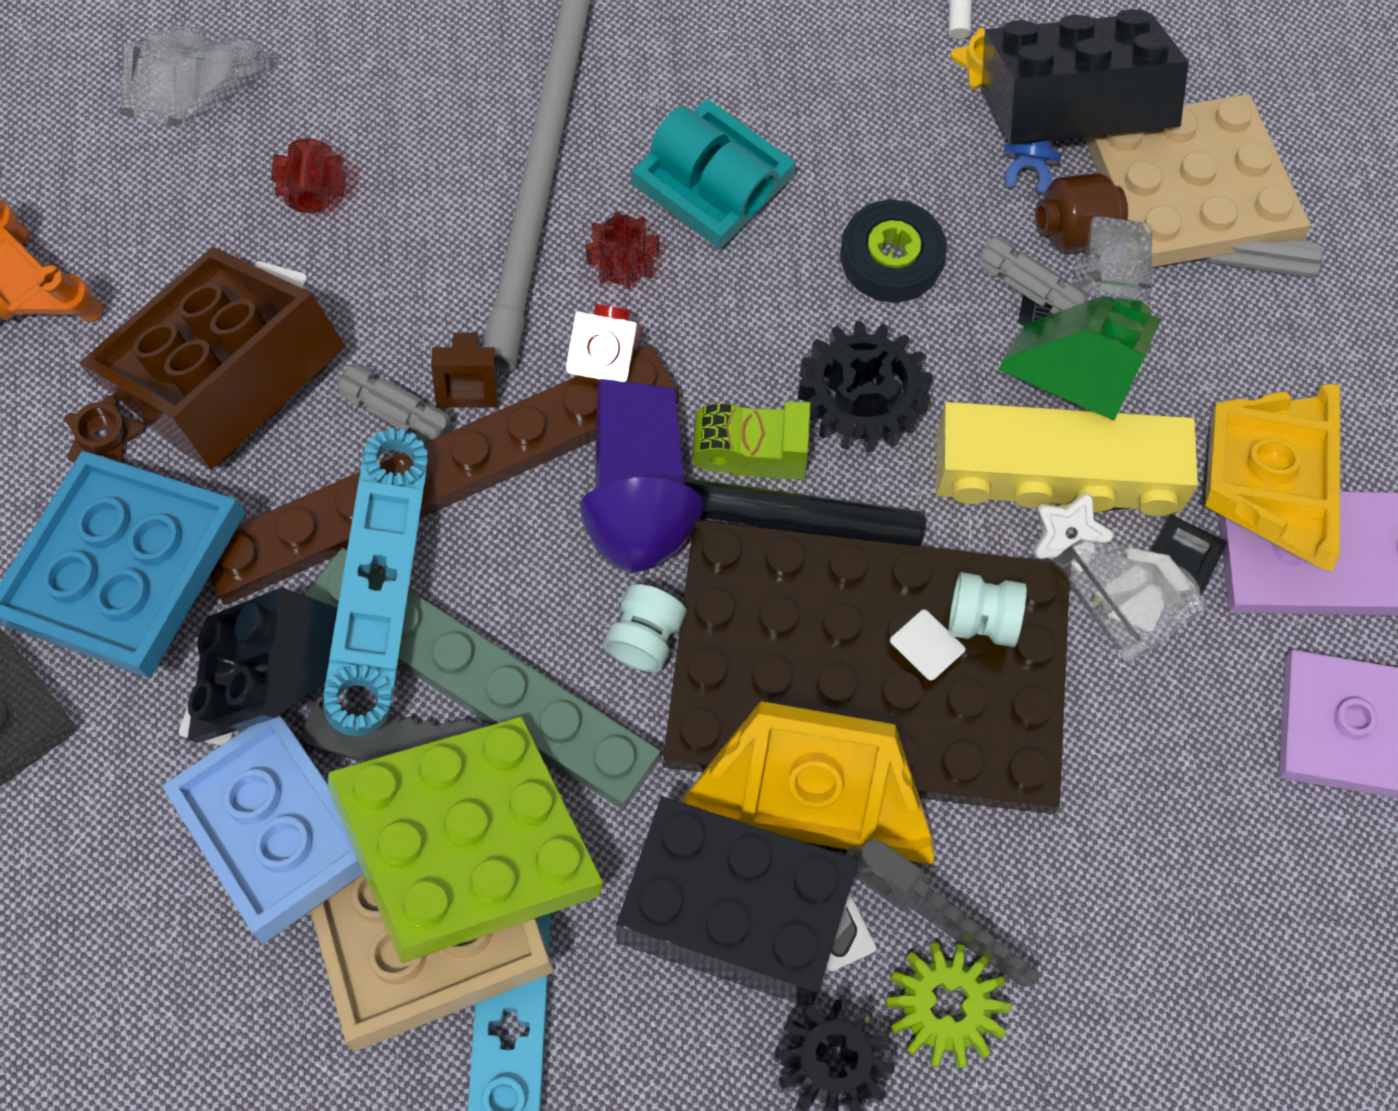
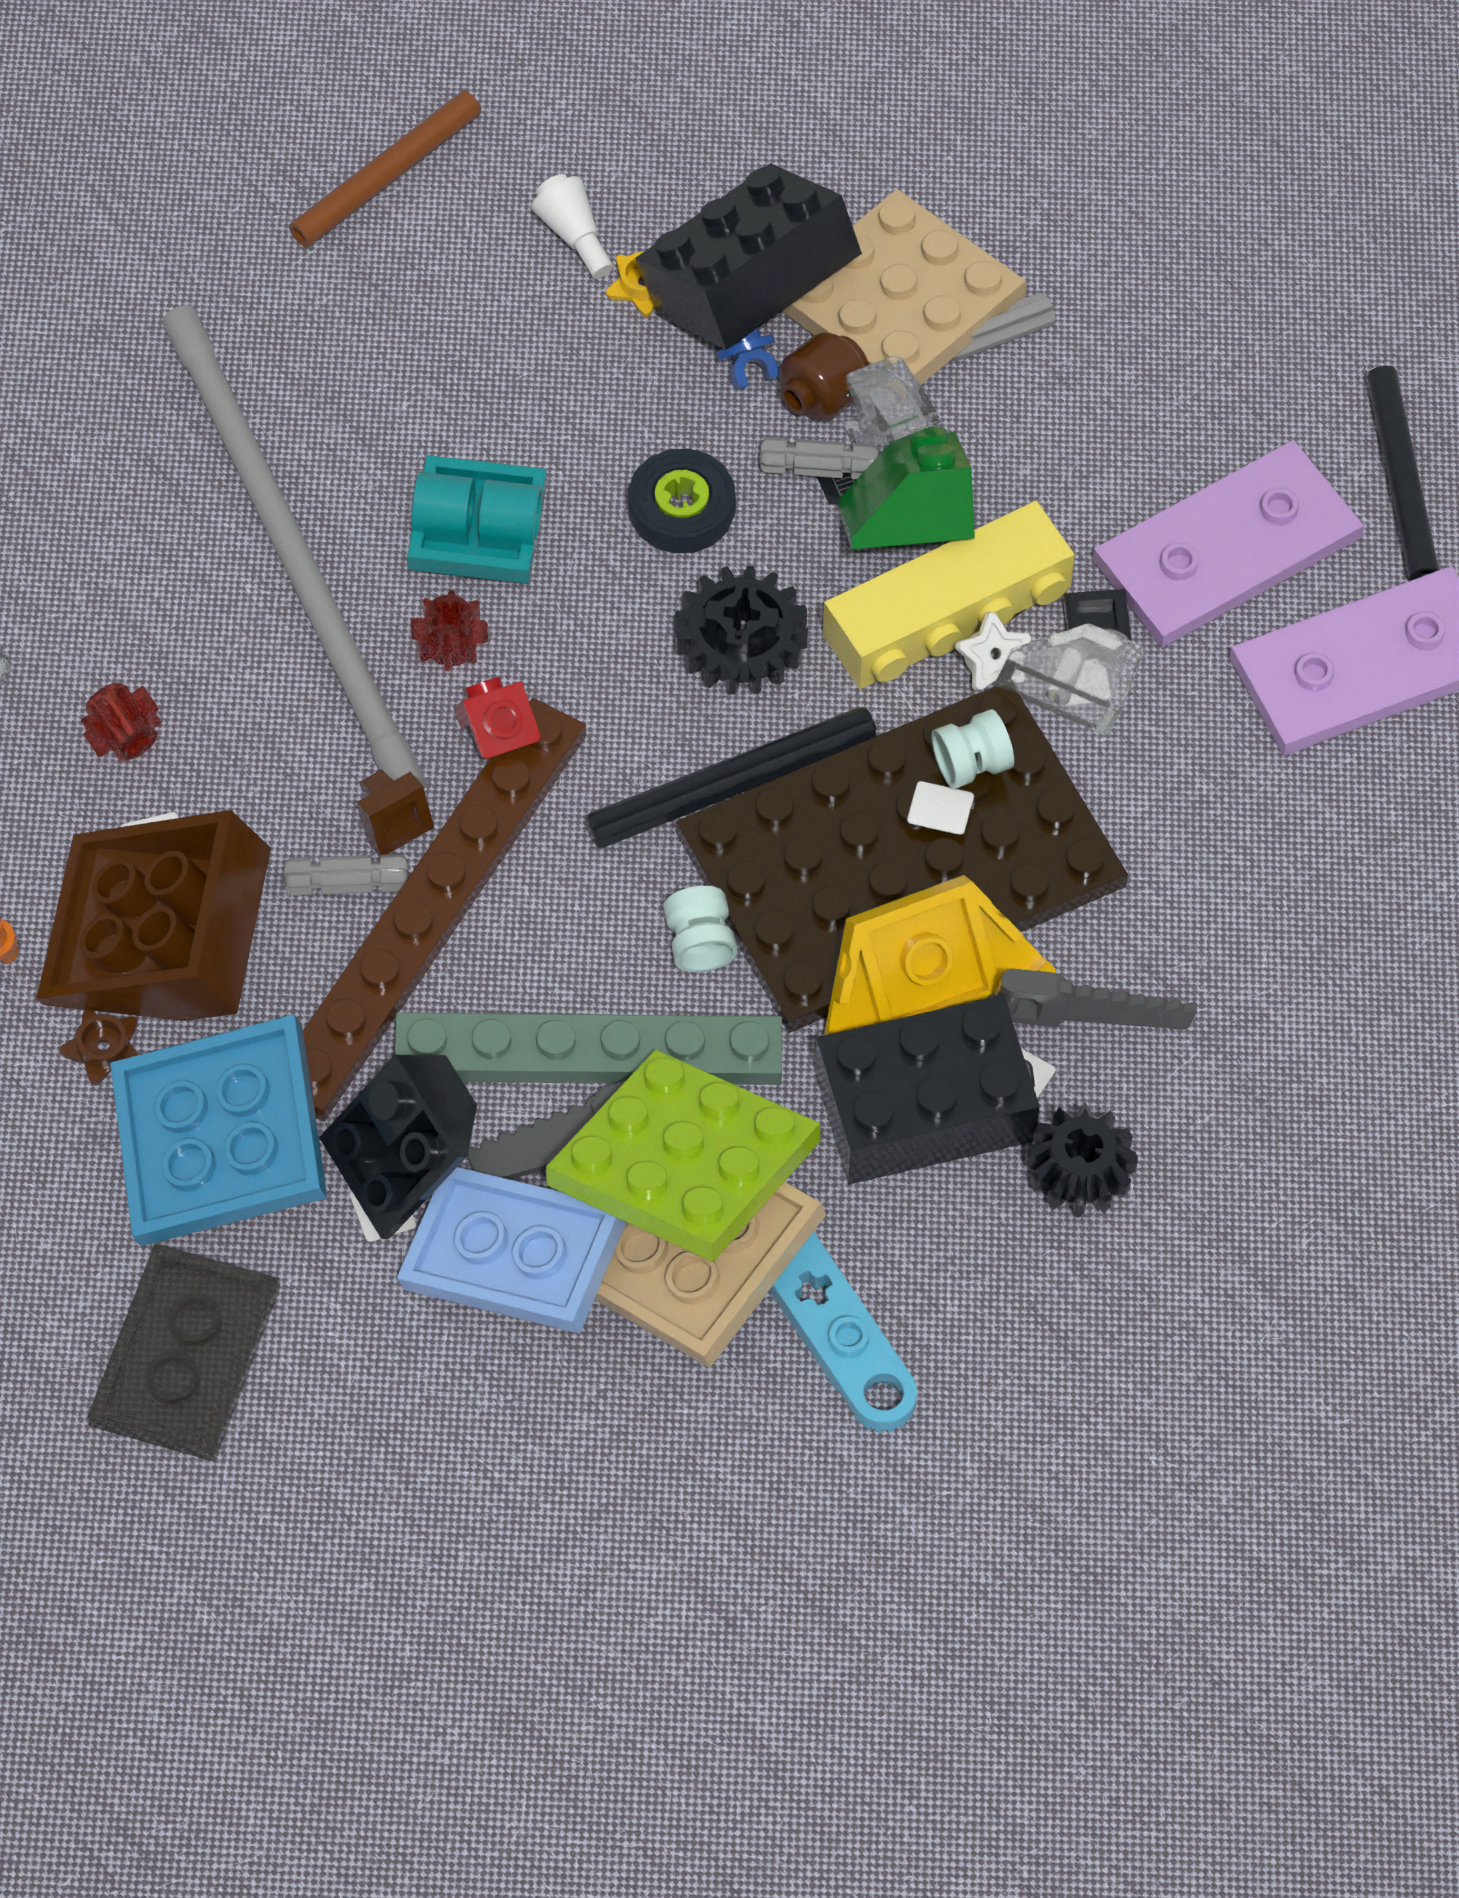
camera: 30 degrees left, 5 degrees down
(369, 620) = (474, 1049): medium azure piece -> none
(639, 497) = (629, 829): dark purple piece -> none
(752, 440) = (680, 727): lime leg -> none
(946, 1033) = (1152, 1092): lime gear -> none
(1280, 470) = (1130, 504): yellow wing -> none

